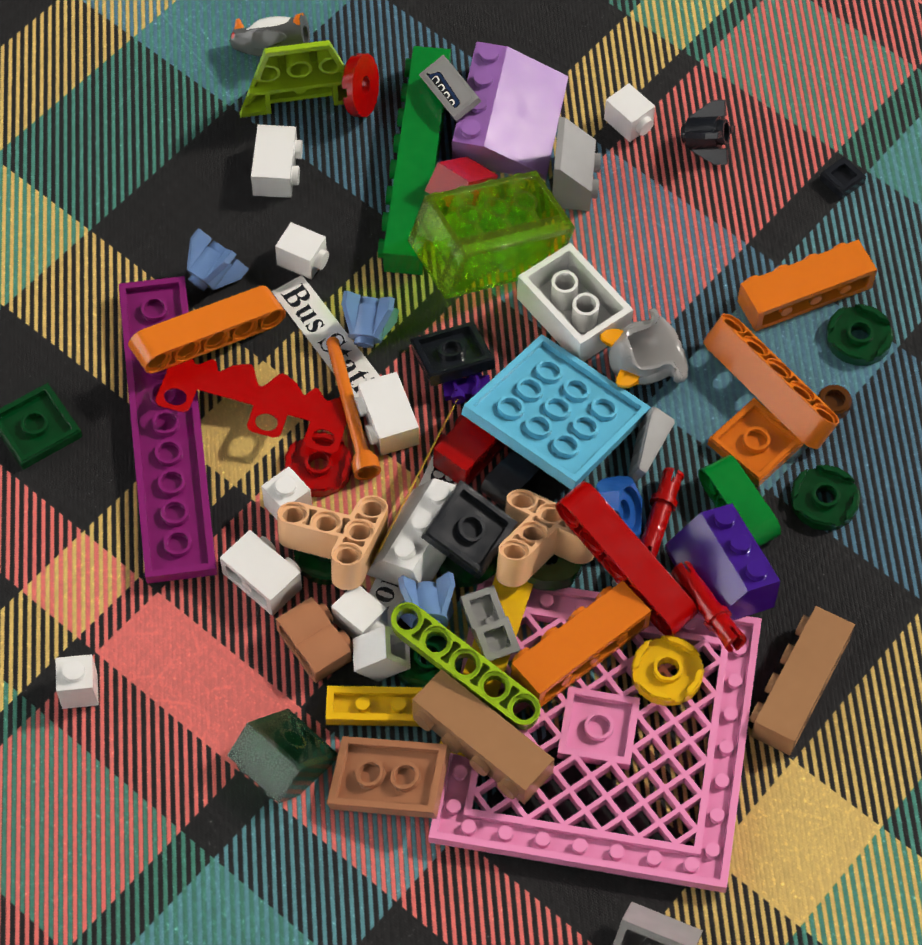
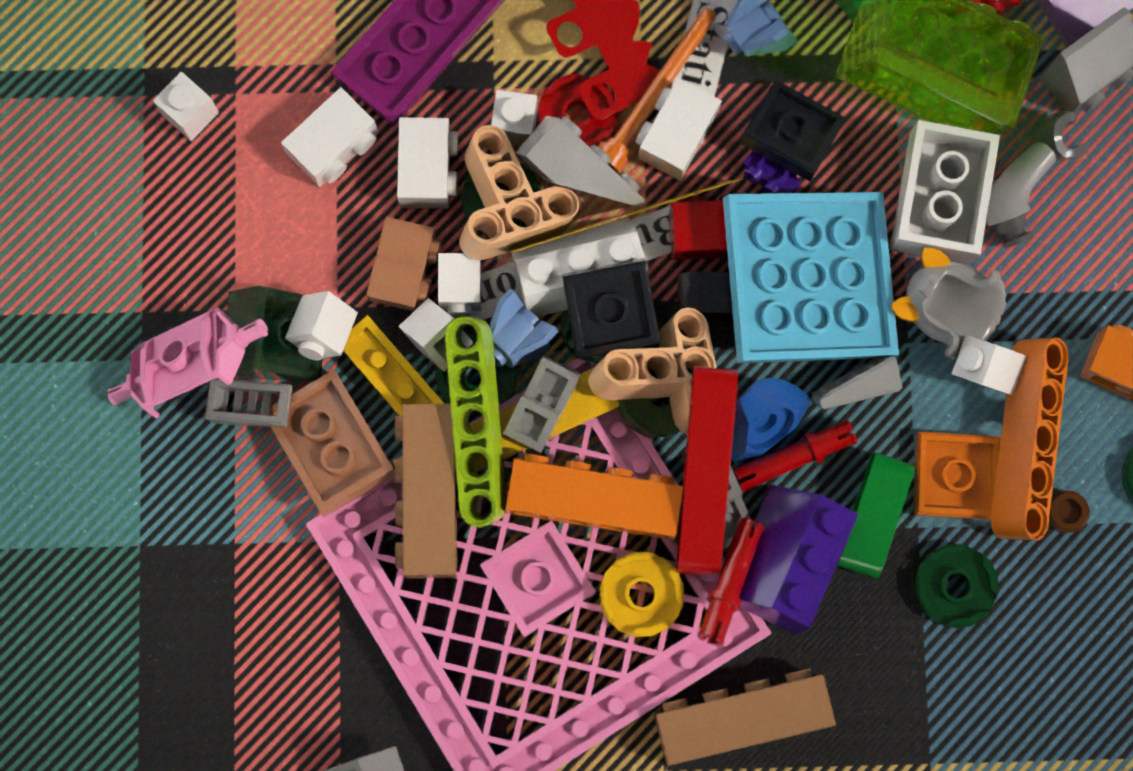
camera: 45 degrees right, 20 degrees up
(188, 613) = (331, 138): none -> white brick
(261, 788) = (209, 347): none -> bright pink plate
(295, 804) = (219, 397): none -> light grey slope
(307, 715) = (321, 325): none -> white brick
(342, 481) = (565, 160): none -> light grey slope
(599, 234) = (1013, 186): none -> piece
(704, 363) = (989, 365): none -> white brick

